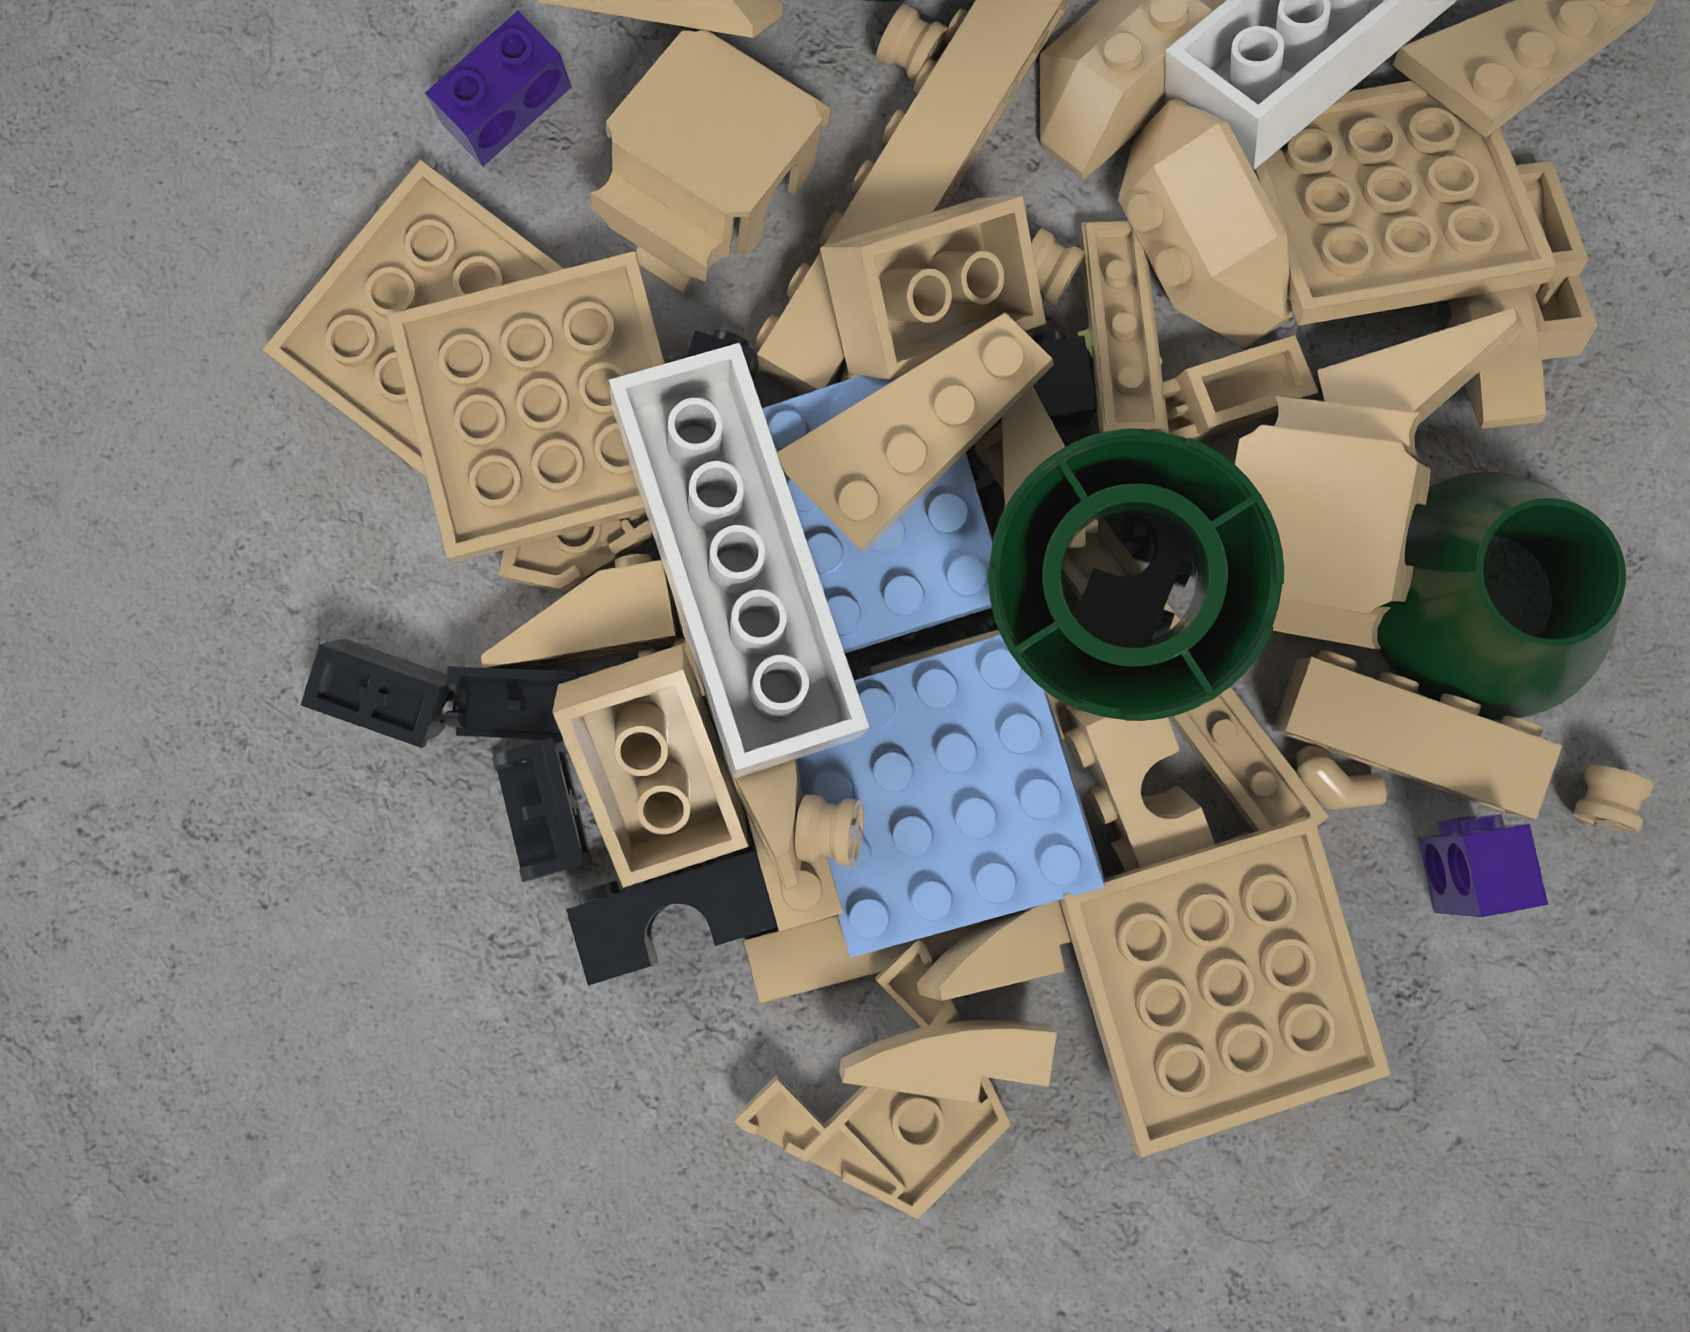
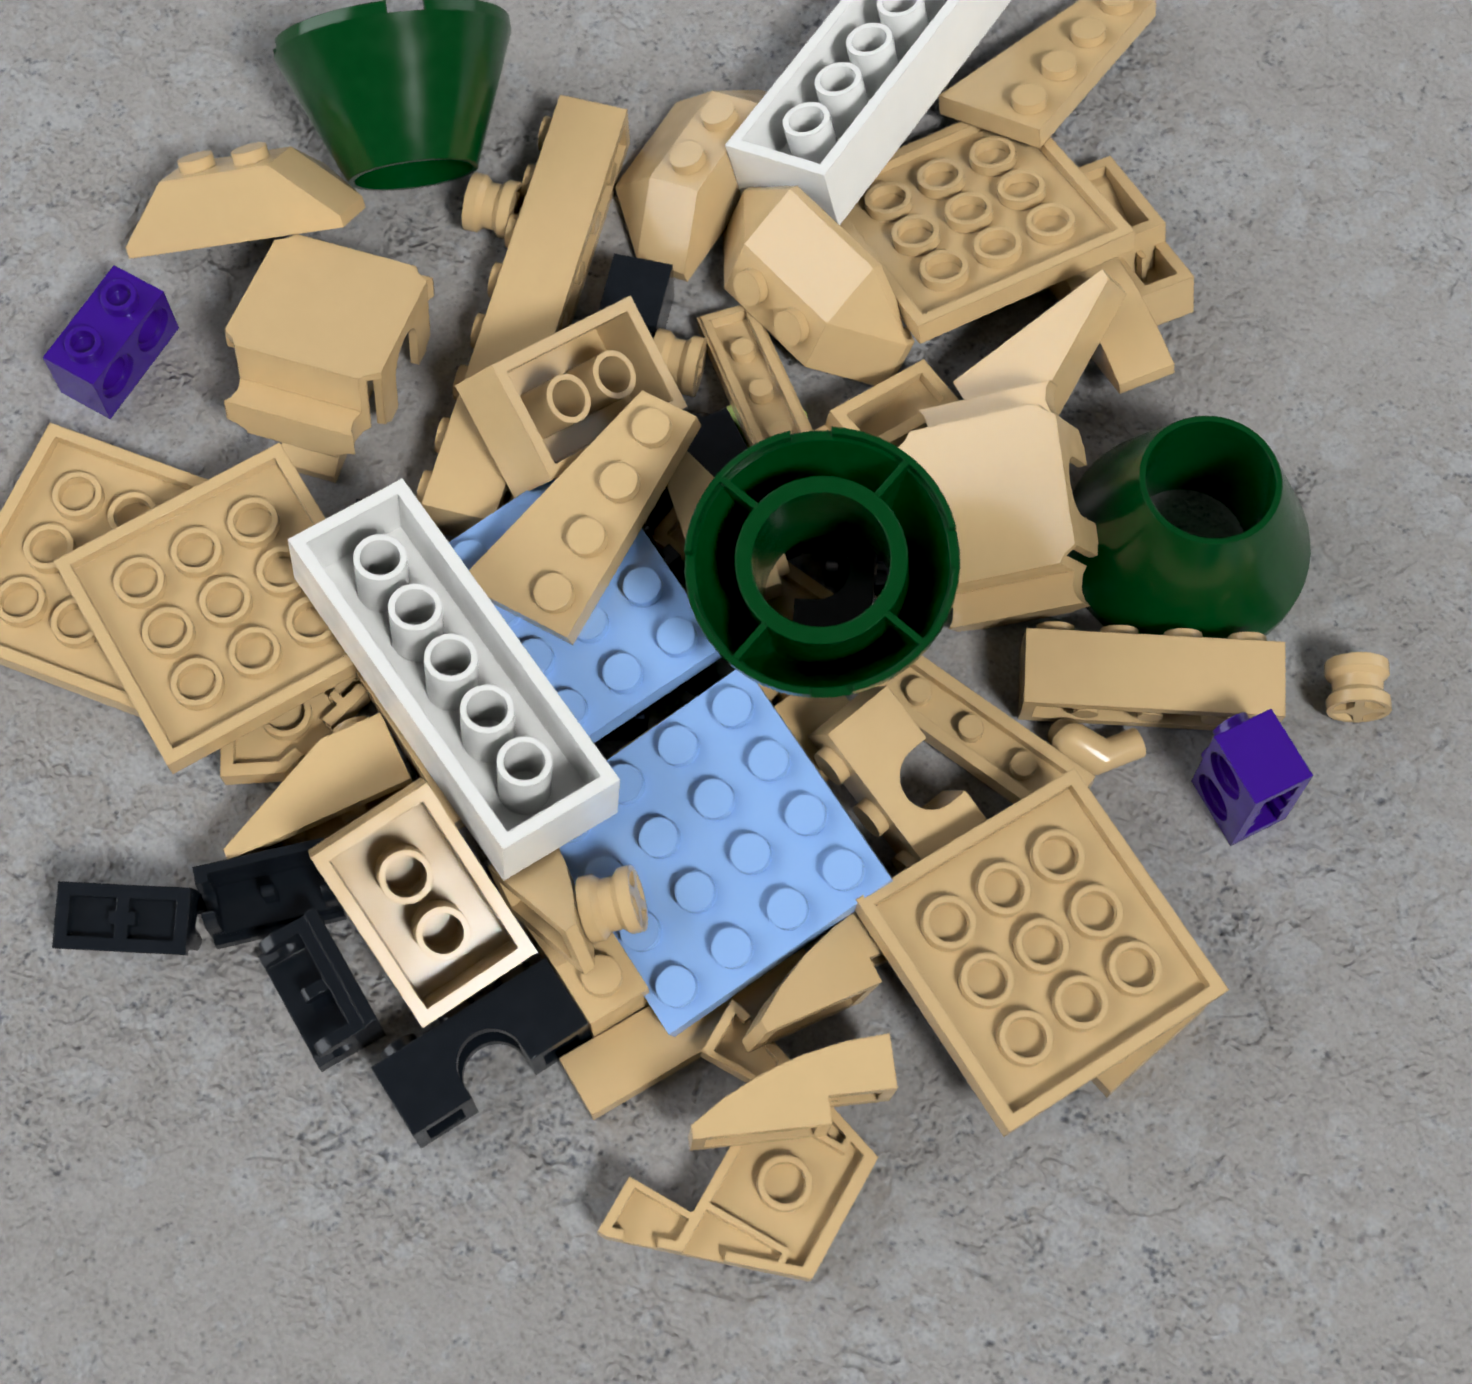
camera: 15 degrees left, 15 degrees down
(1037, 177) = (648, 284): none -> black brick

